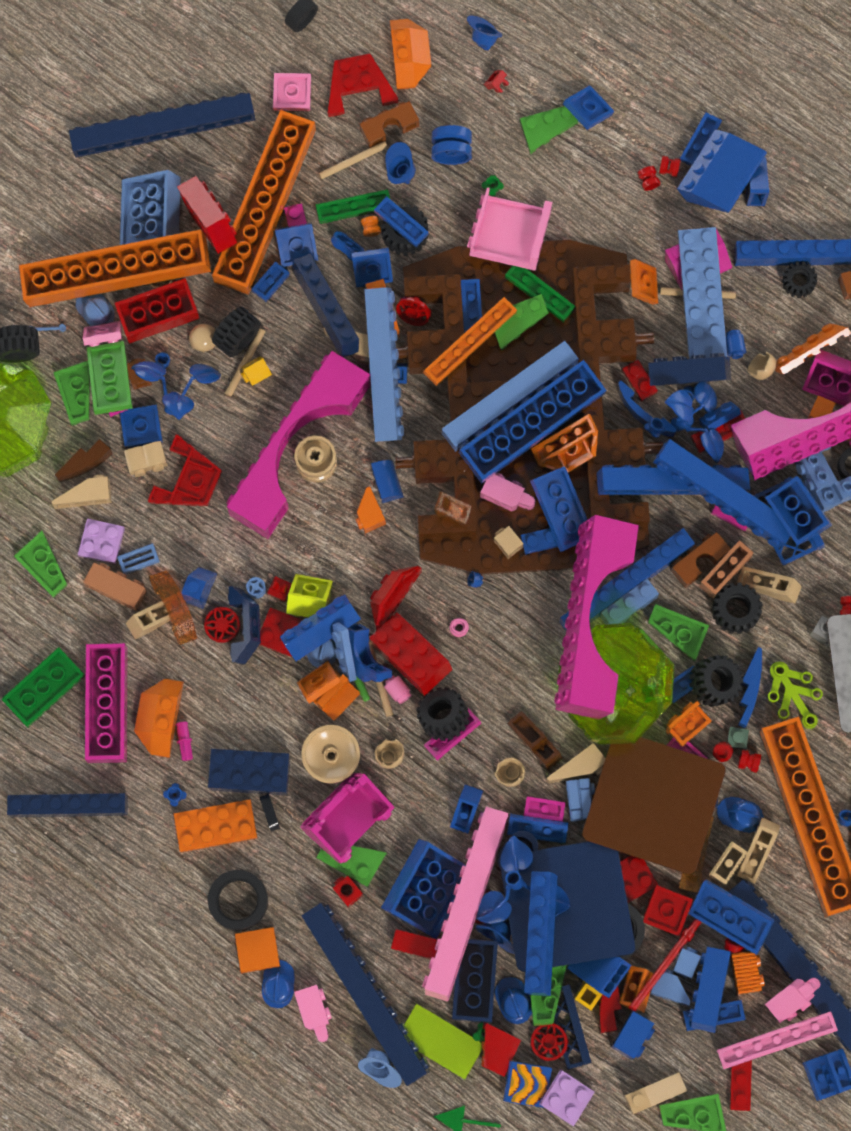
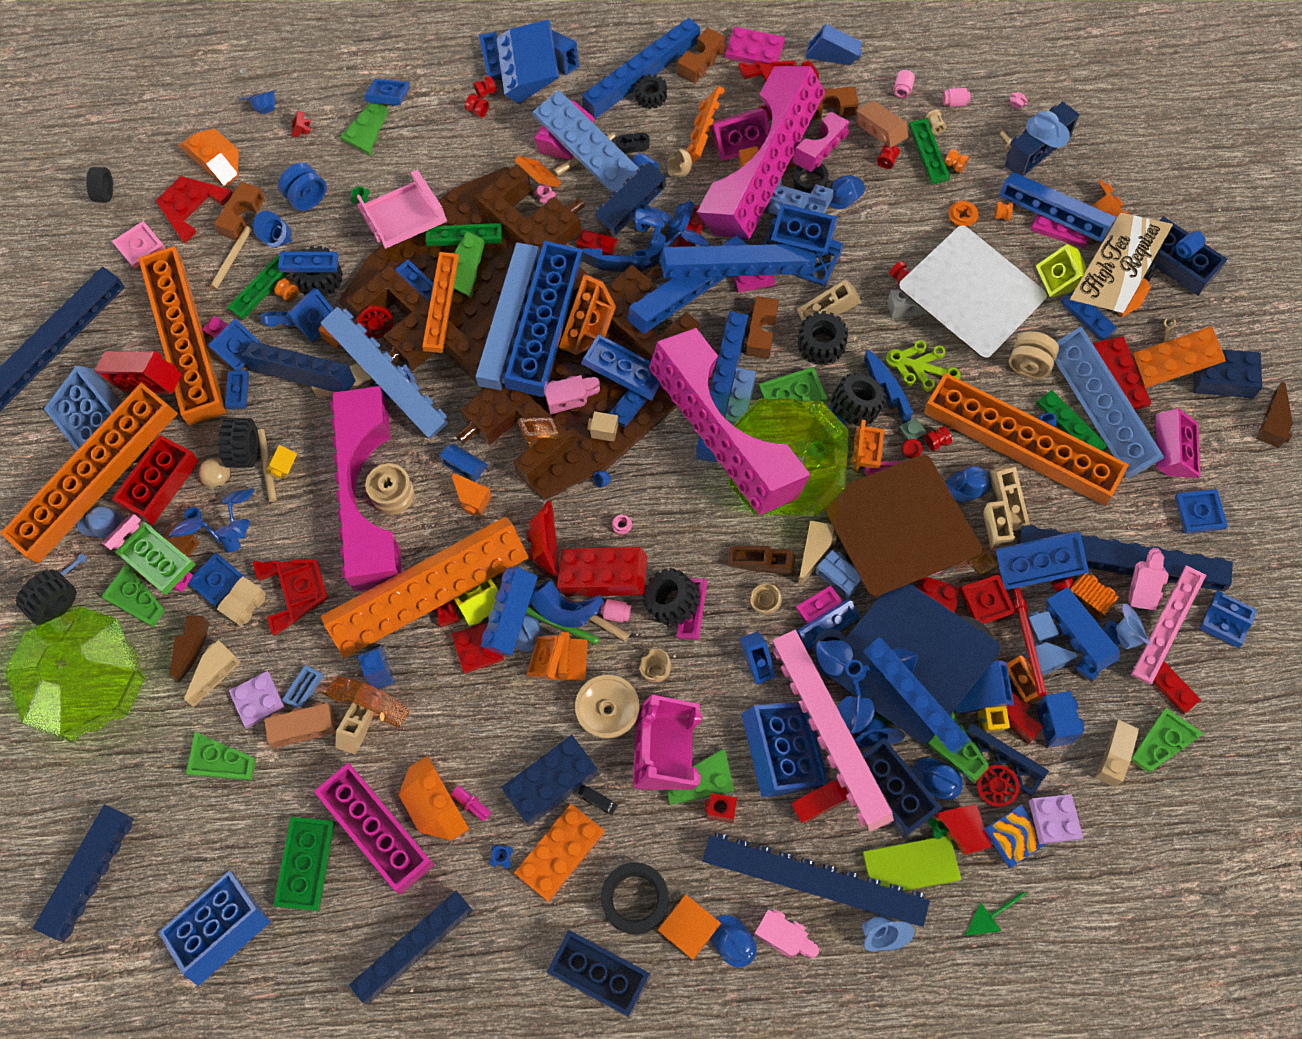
camera: 40 degrees left, 10 degrees down
(171, 928) = (599, 973): none -> dark blue brick
(222, 624) = (421, 681): red wheel -> none
(242, 651) = (458, 685): dark blue slope -> none
(256, 584) = (424, 623): medium blue wheel -> none
(278, 558) = (424, 587): none -> orange brick
(343, 651) = (545, 612): medium blue plate -> none
(632, 306) = (542, 189): none -> bright pink plate
(726, 569) = (788, 317): nougat brick -> none
(747, 311) = (633, 142): none -> black beam
(747, 1020) = (1130, 629): none -> medium blue piece

